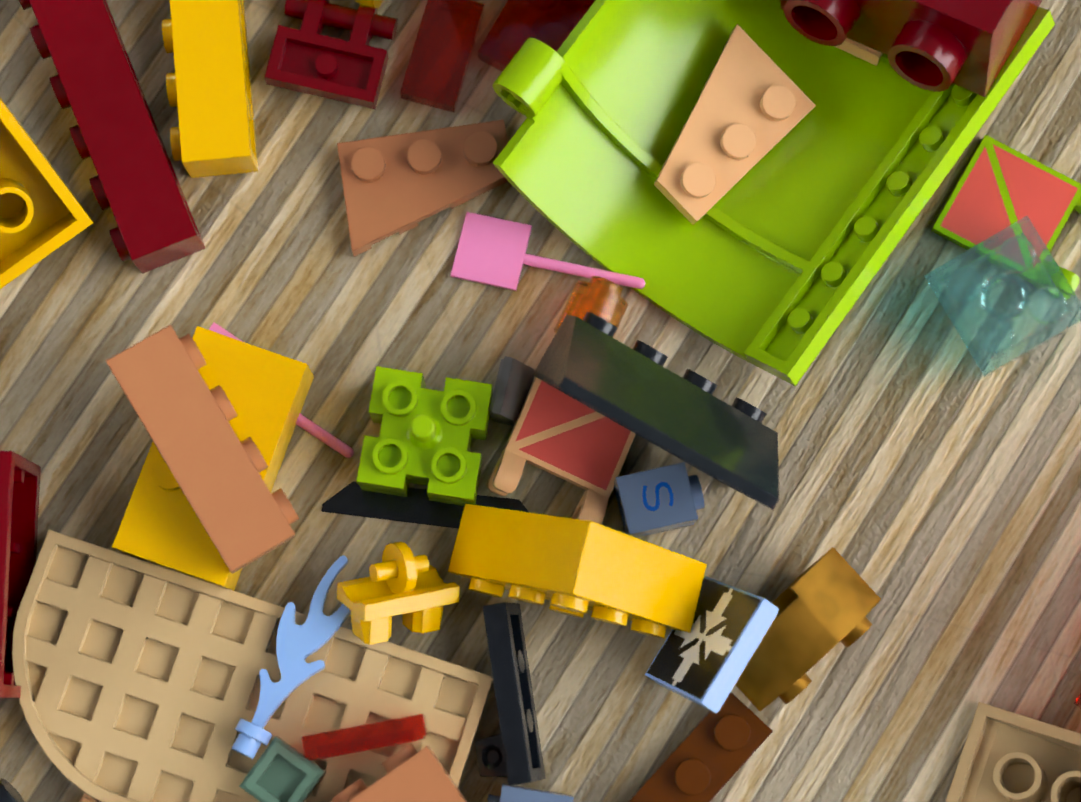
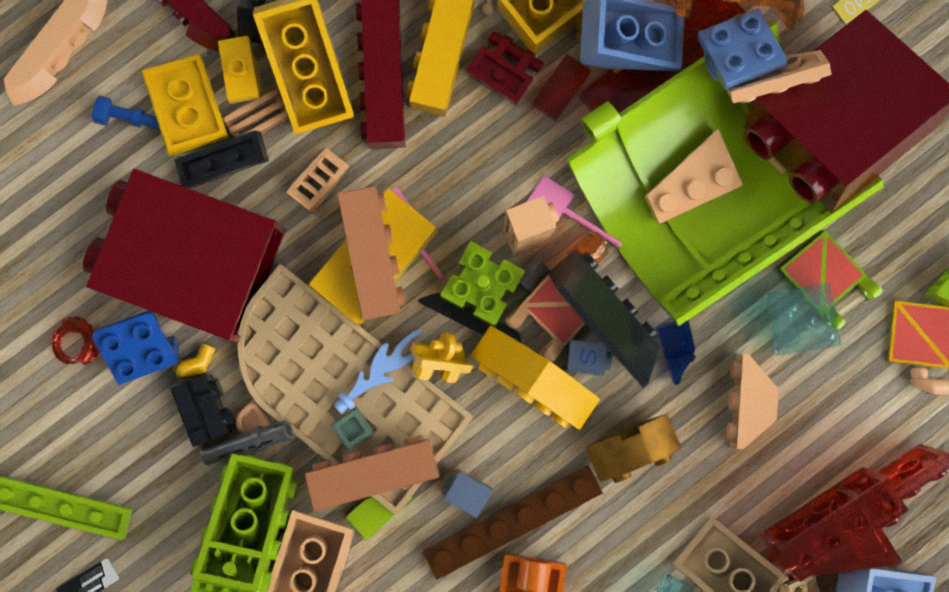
camera: 25 degrees right, 5 degrees up
(80, 385) = (302, 181): none -> light nougat slope
(365, 737) = (400, 424): clear red tile -> none
(413, 175) = (524, 147): nougat wing -> none
(469, 298) = (529, 225): none -> light nougat brick
(517, 748) = (472, 456): black hinge -> none
(720, 644) = (590, 443): tile -> none
(807, 427) = (677, 348): none -> clear blue slope
(972, 474) = (752, 402): none -> light nougat slope

